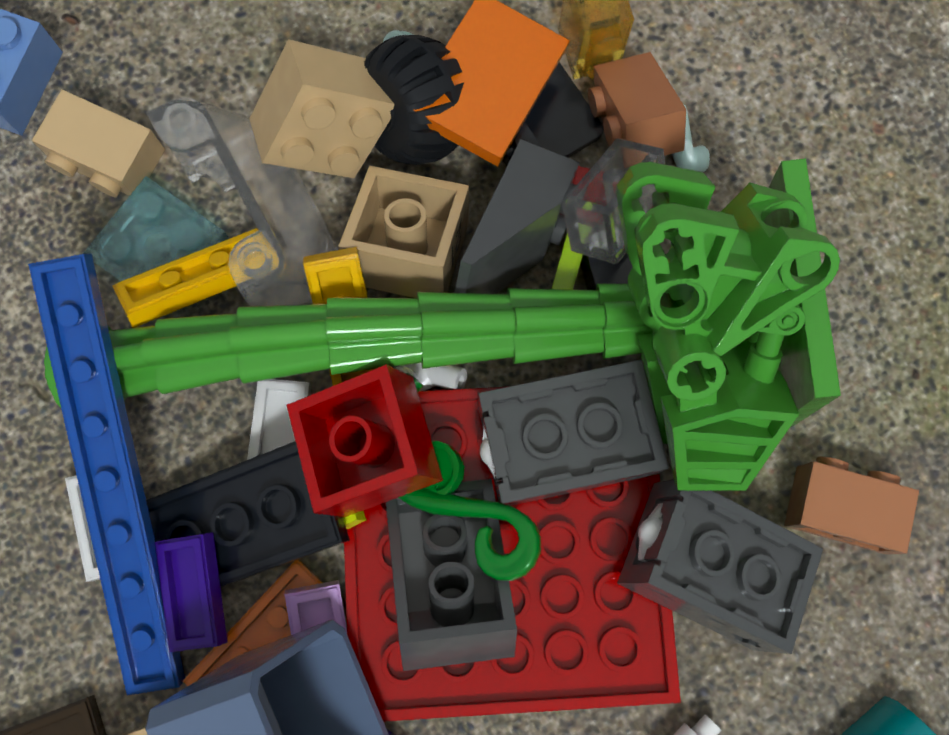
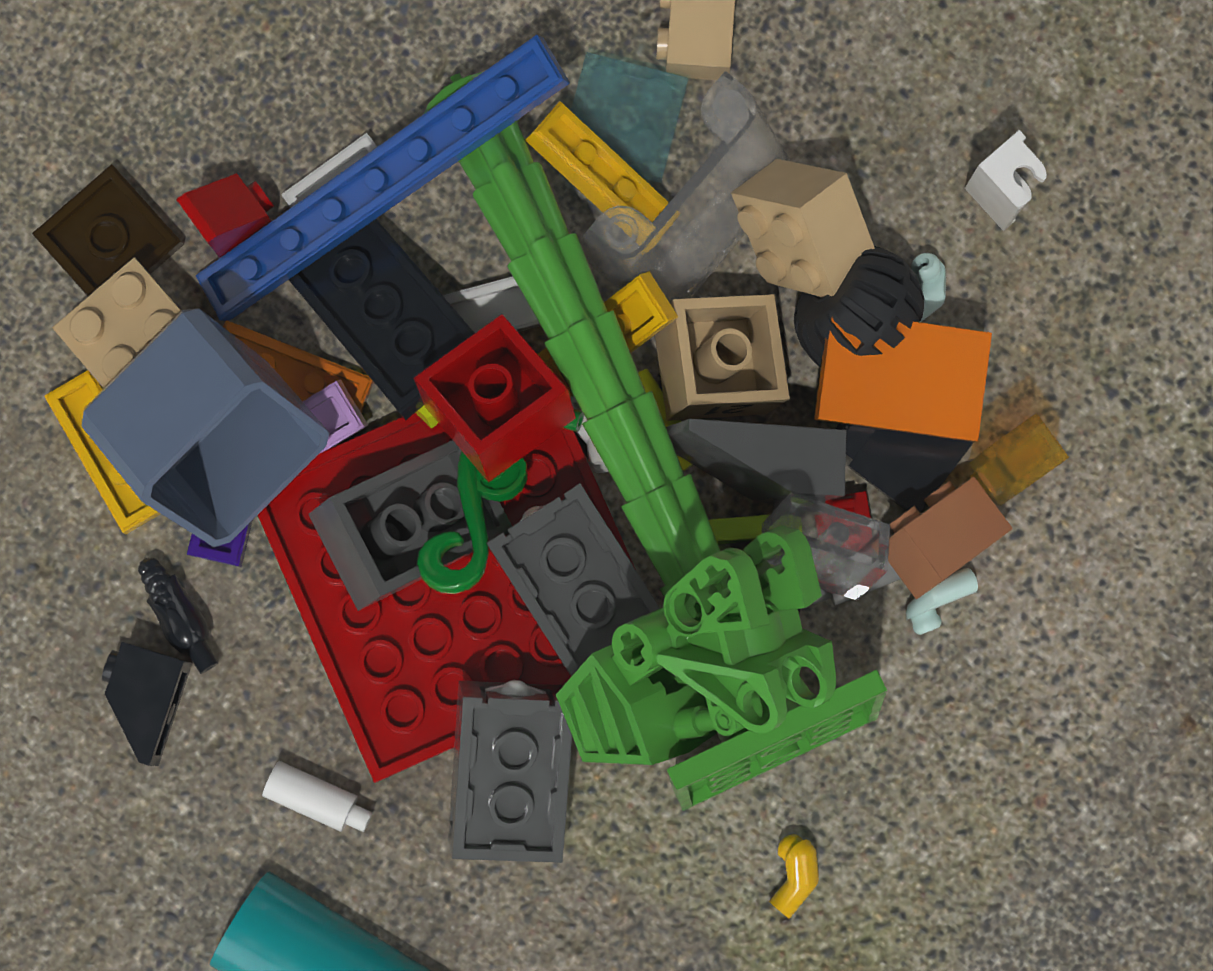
camera: 75 degrees right, 5 degrees up
(73, 642) = (227, 211): none -> red slope
(191, 592) = (307, 295): dark purple tile -> none
(852, 507) = (619, 888): nougat brick -> none
(885, 343) = (801, 871): none -> yellow arm

